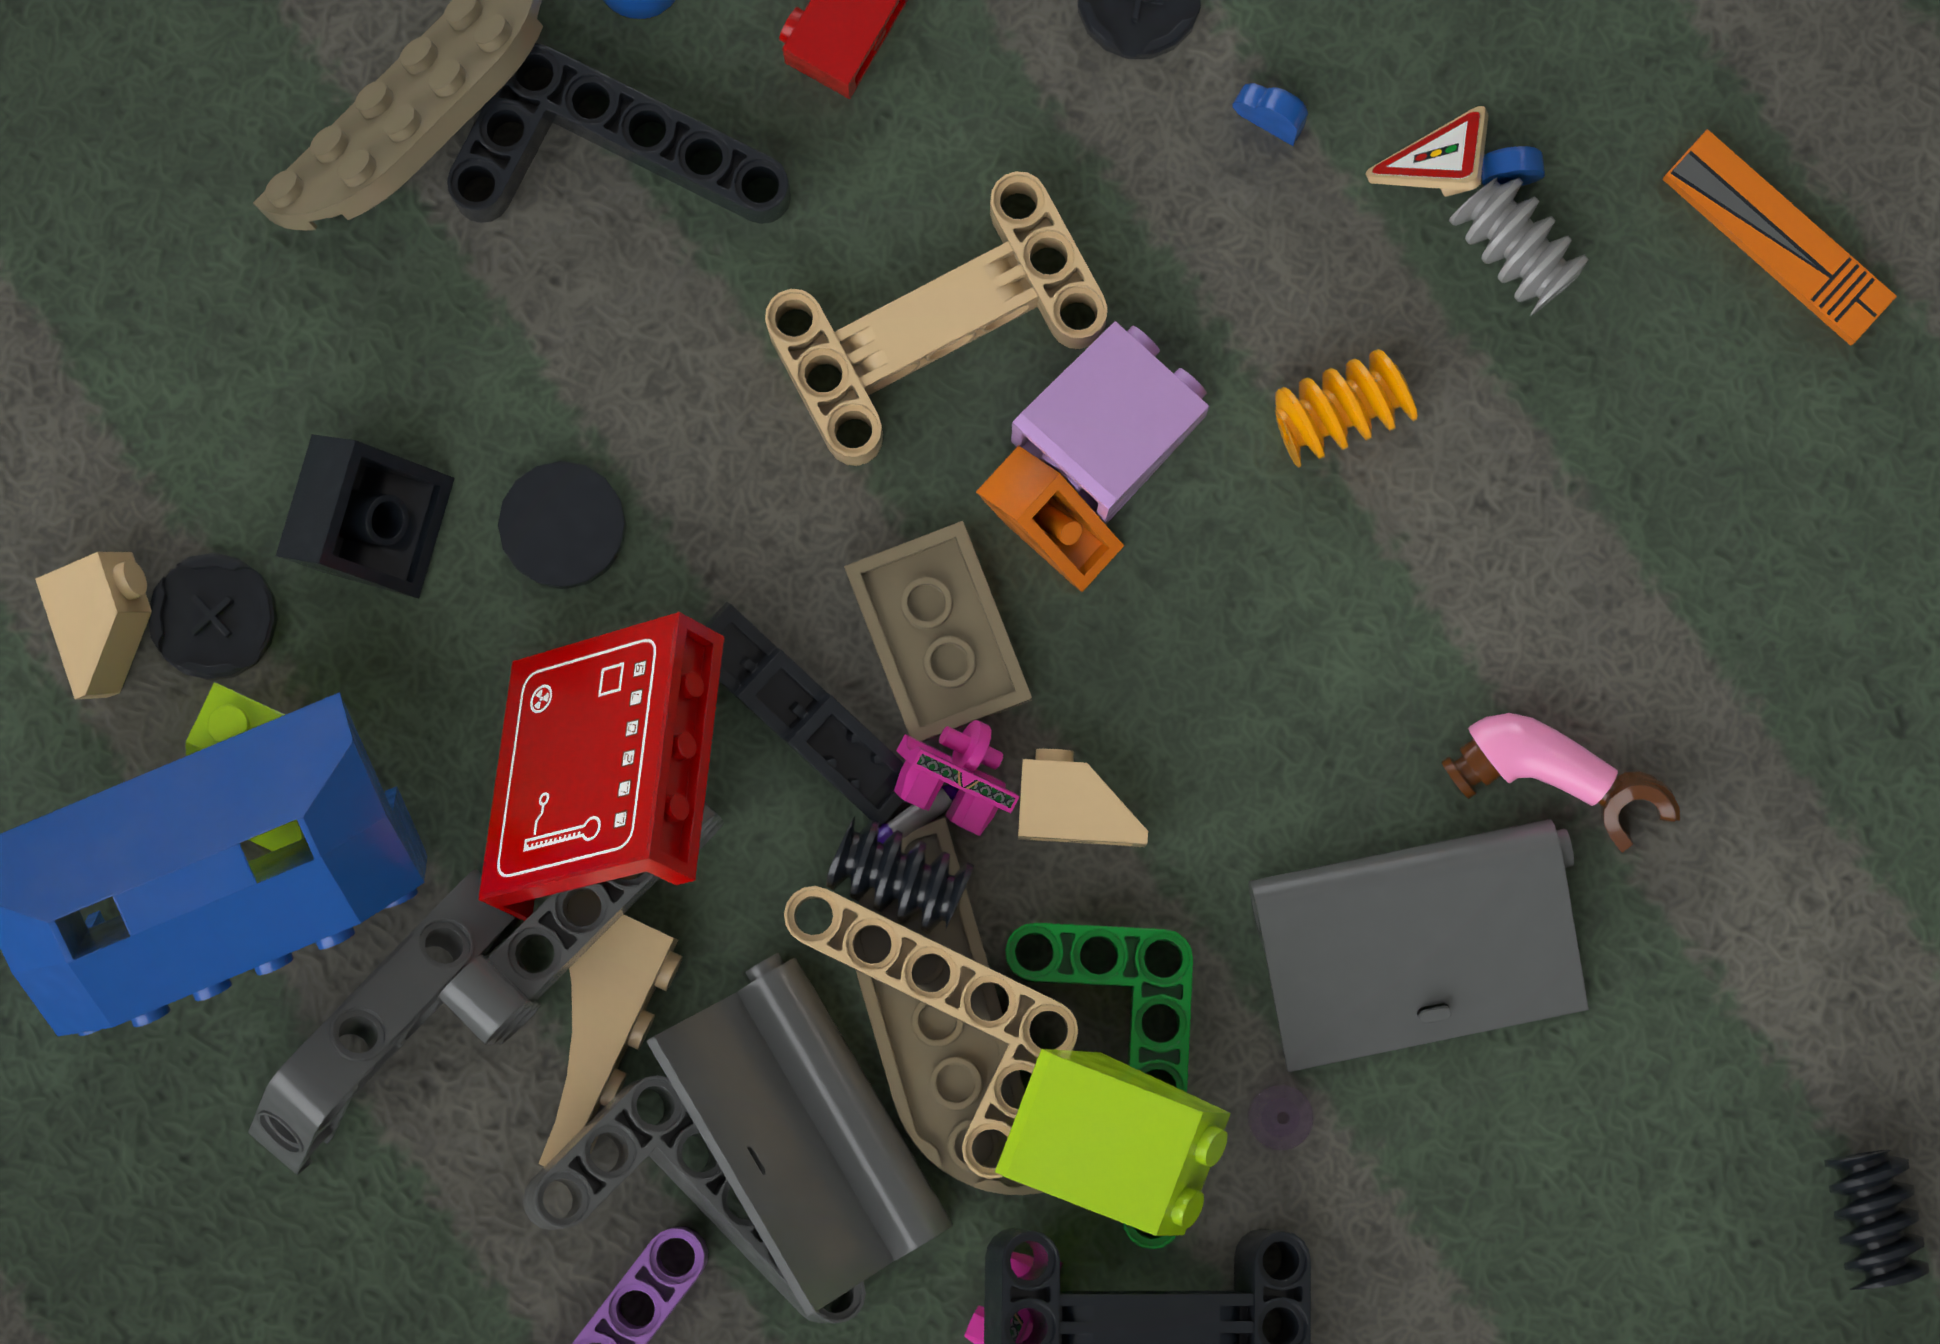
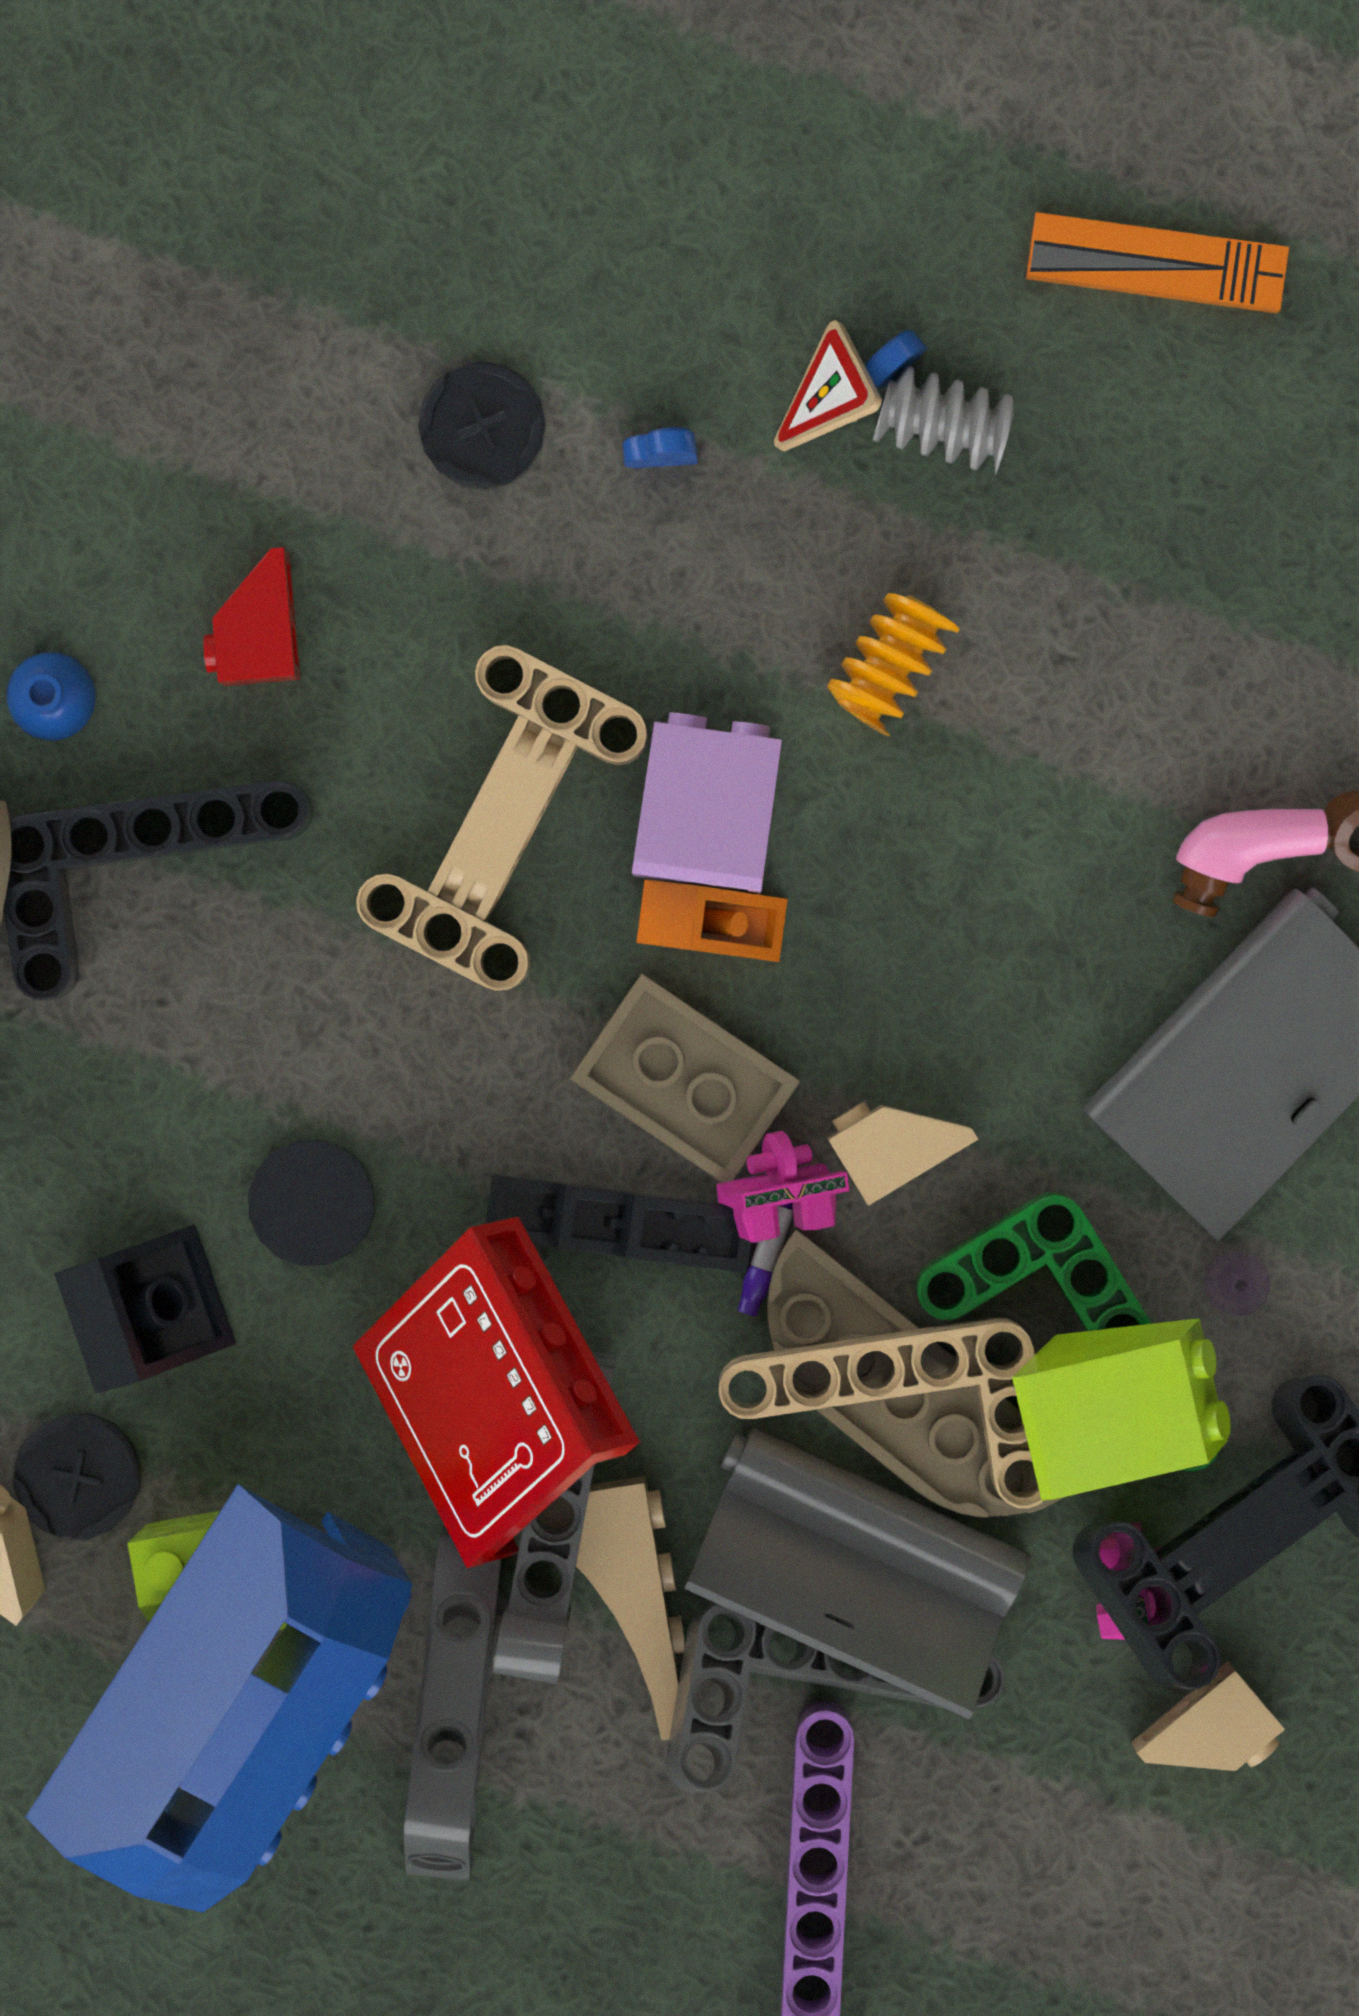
camera: 35 degrees left, 5 degrees up
(898, 875) = (794, 1306): black piece -> none

